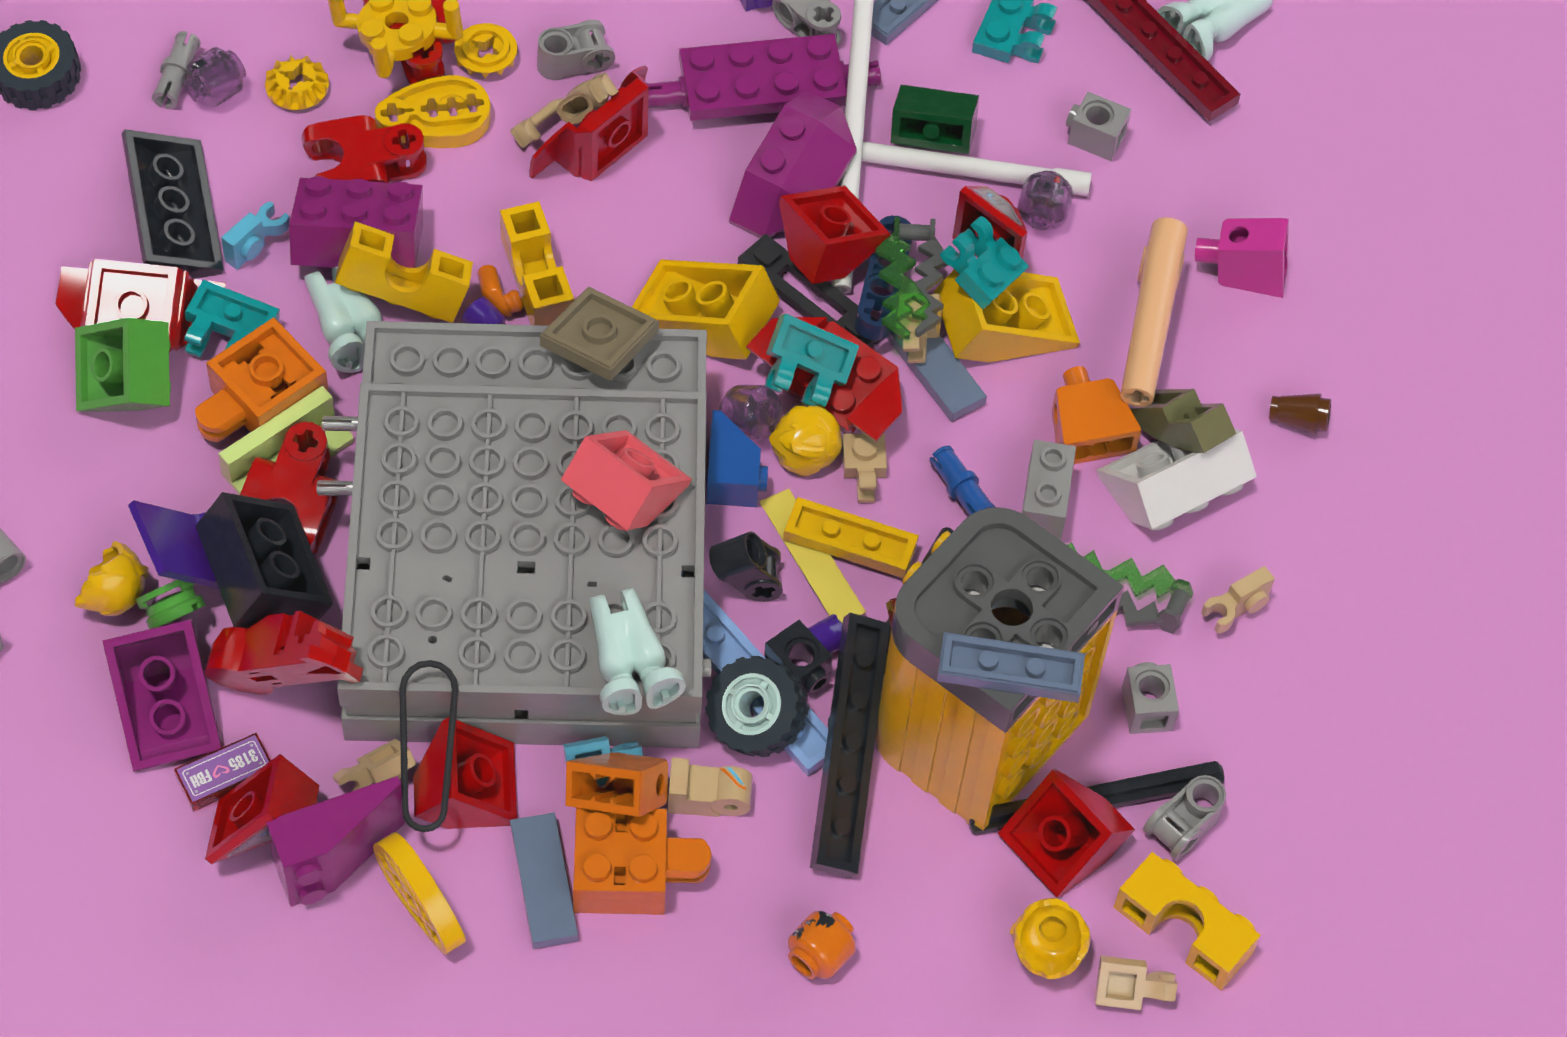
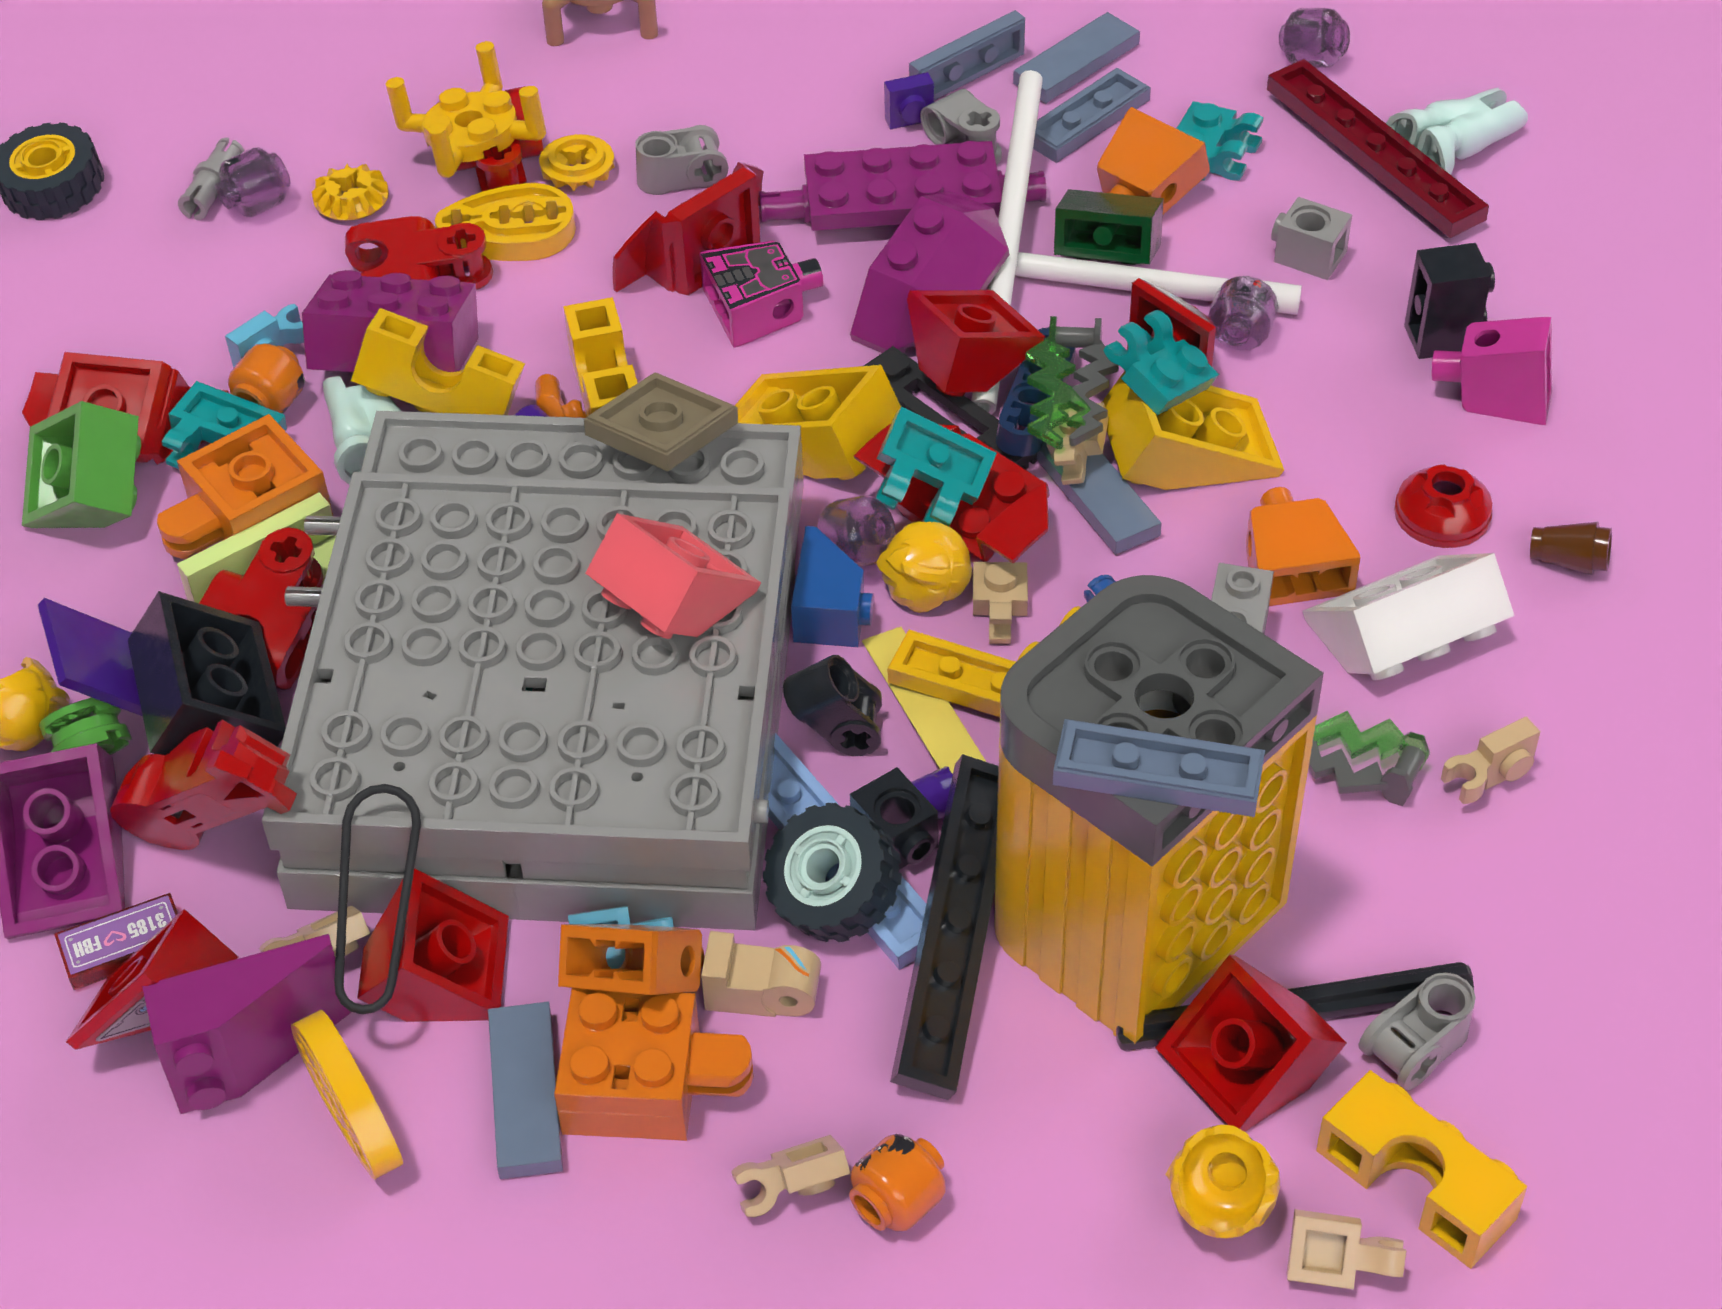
camera: 10 degrees right, 10 degrees down
(172, 203) = (179, 305): black slope -> none
(259, 274) = (267, 377): none -> orange head
(573, 108) = (698, 178): tan piece -> none
(628, 646) = (653, 771): light aqua piece -> none
(649, 180) = (756, 288): none -> dark pink torso
(750, 935) = (802, 1168): none -> tan plate
(965, 56) = (1152, 160): none -> orange torso
(1148, 714) = (1370, 879): light grey brick -> none
(1159, 280) = (1383, 397): light nougat axle -> none
(1183, 421) = (1418, 544): olive slope -> none
(1208, 191) = (1446, 297): none -> black brick
(1211, 386) = (1443, 518): none -> red piece

